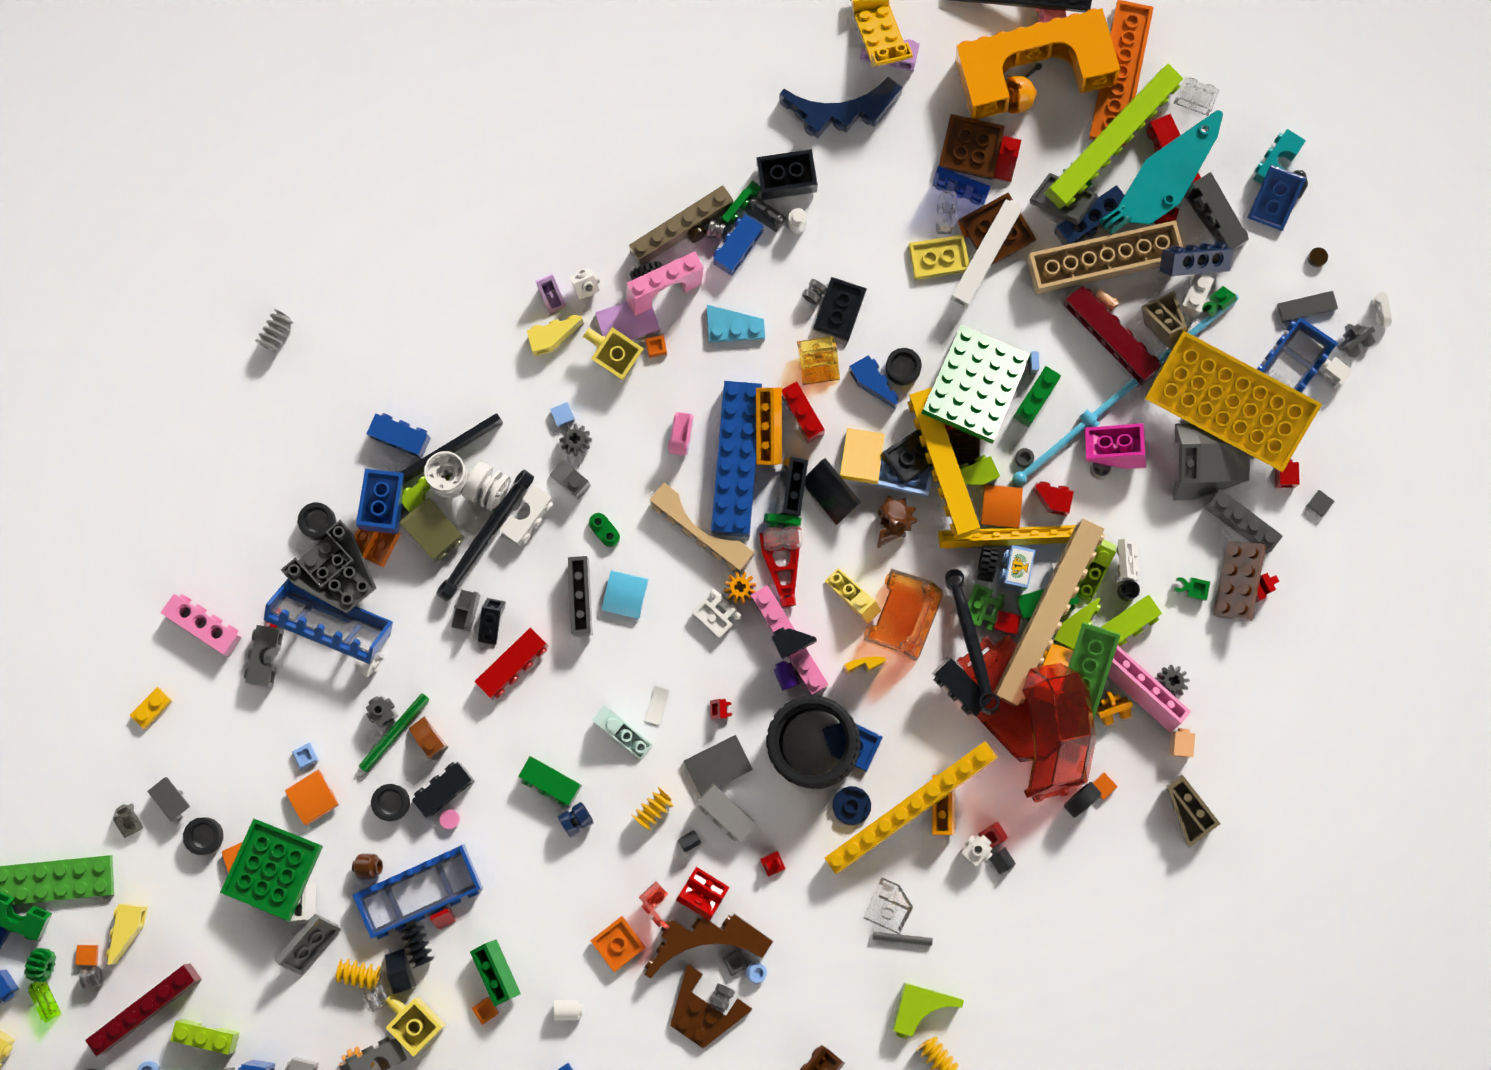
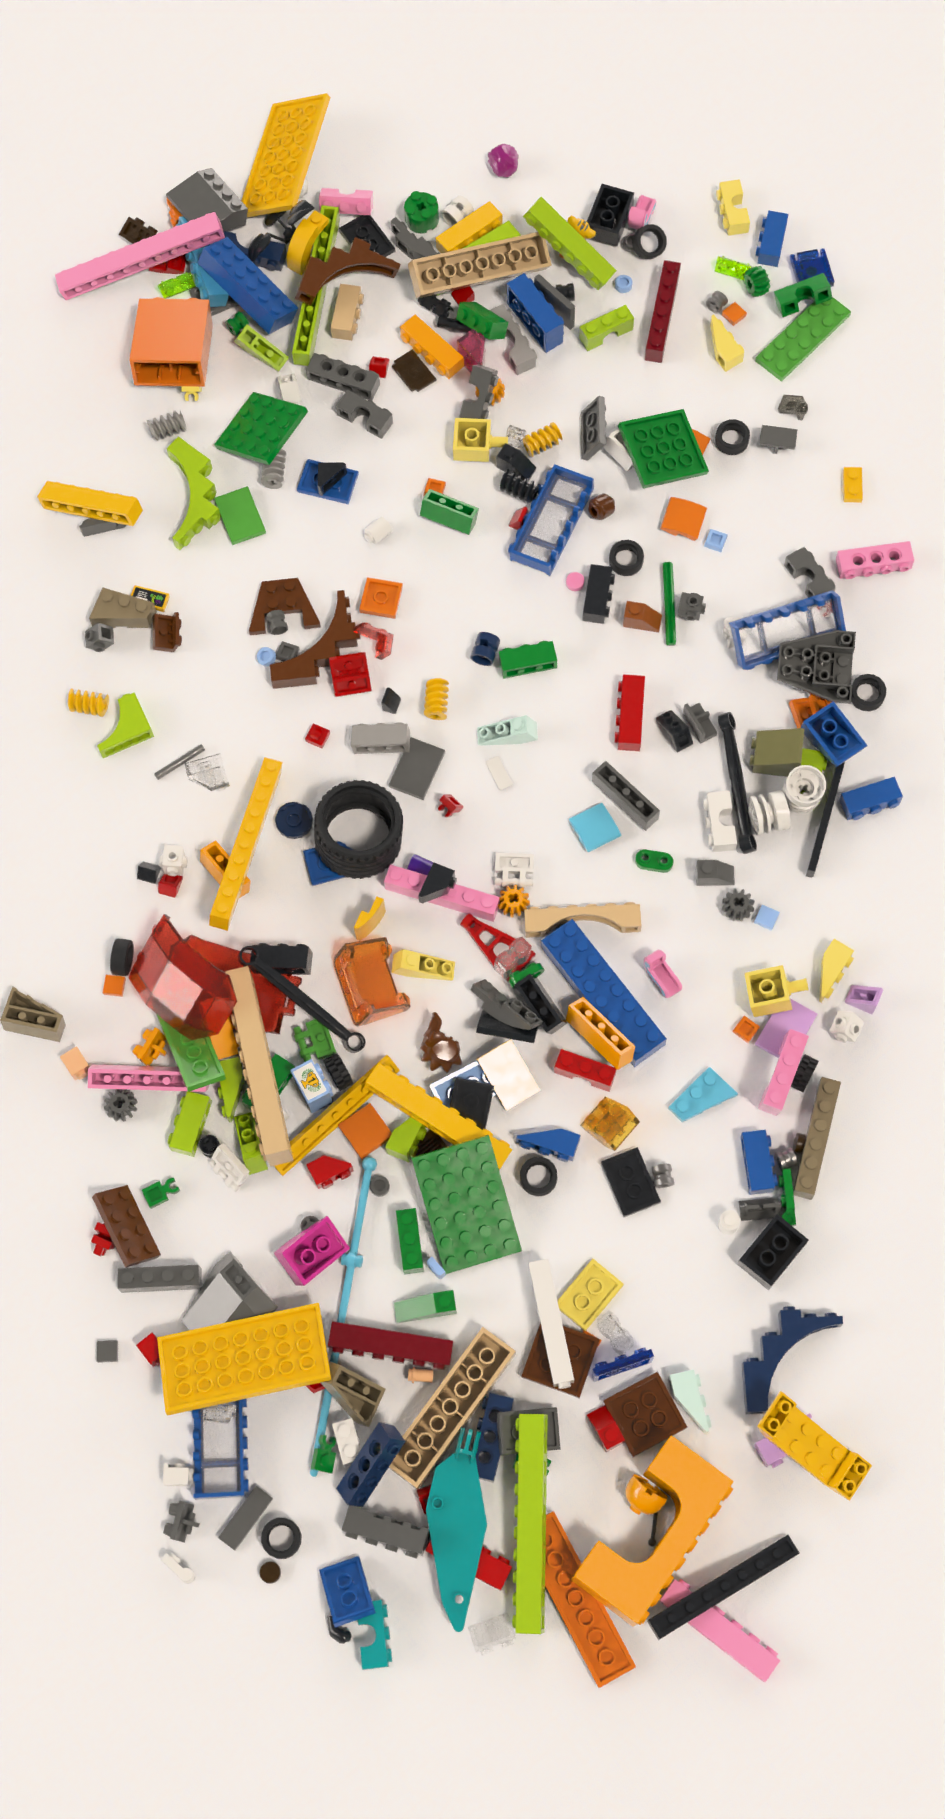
camera: 140 degrees right, 10 degrees down
(823, 506) = (510, 1011): none -> dark grey slope
(931, 135) = (687, 1394): none -> light aqua slope
(1007, 622) = (286, 1043): red slope -> none
(1063, 342) = (425, 1306): none -> slope
(1298, 258) = (279, 1521): none -> black tyre

